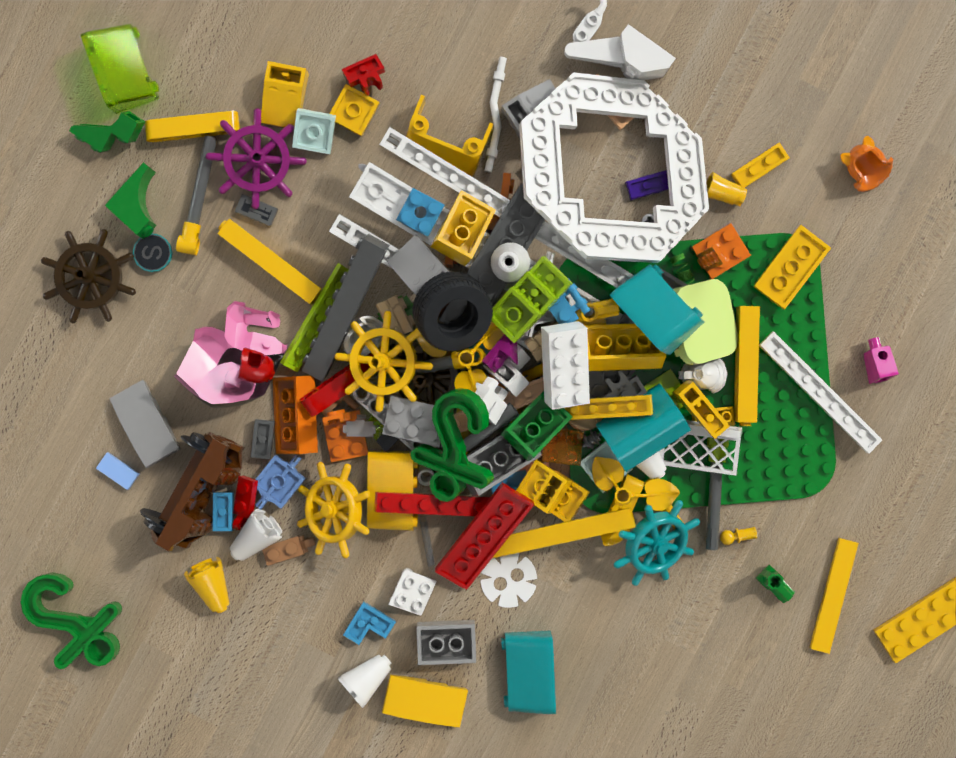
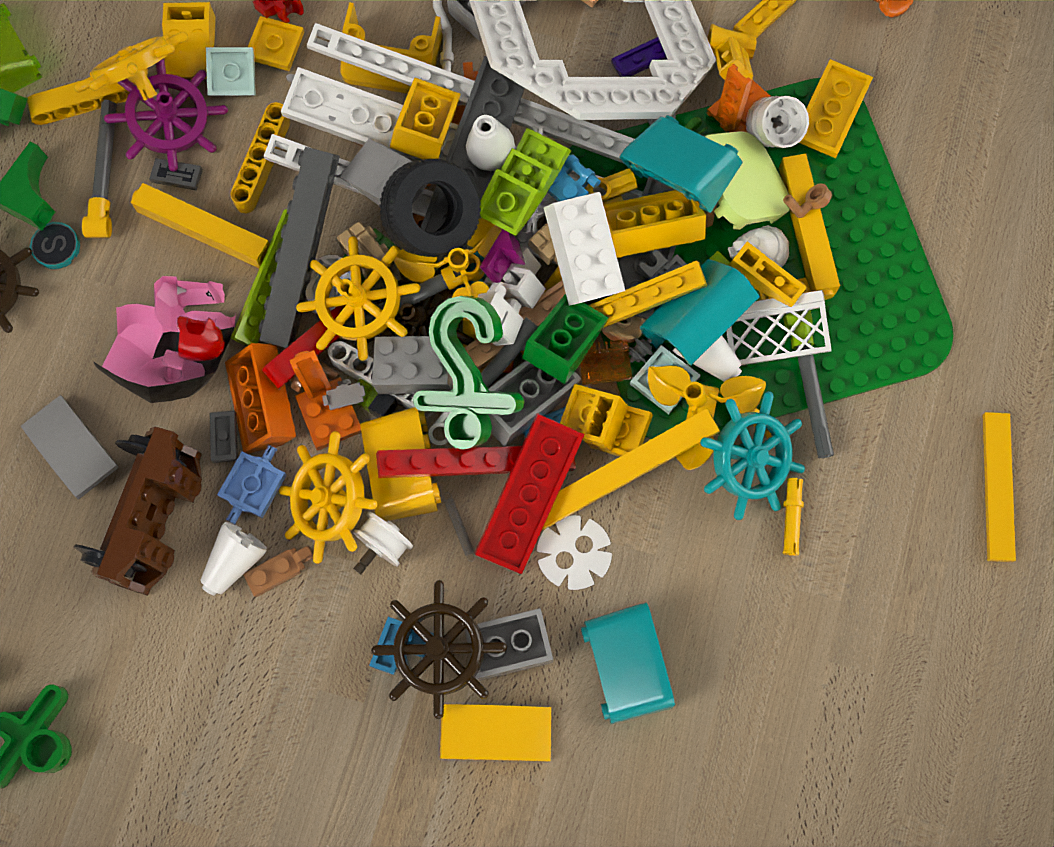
camera: 10 degrees left, 15 degrees down
(117, 471) = (41, 514): light blue tile -> none
(210, 584) = (181, 633): yellow cone -> none
(223, 511) = (185, 537): dark azure plate -> none
(235, 120) = (132, 63): none -> yellow piece
(244, 500) = (210, 515): red plate -> none
(327, 202) = (259, 168): none -> yellow beam
(366, 678) = (406, 721): white cone -> none
(369, 549) = (382, 540): none -> white wheel
(395, 639) = (438, 649): none -> dark brown piece
(407, 213) = (369, 97): dark azure piece -> none
(412, 592) = (459, 585): white hinge -> none
(678, 579) = (792, 516): none -> yellow pin
(722, 215) = (732, 53): none -> yellow brick
(727, 537) = (843, 439): yellow pin -> none
(744, 276) = (788, 120): none -> white wheel
(754, 350) = (816, 198): none -> medium nougat plate
(775, 583) = (914, 480): green piece -> none
(820, 392) = (912, 243): white plate -> none
(879, 362) = (970, 194): dark pink torso -> none

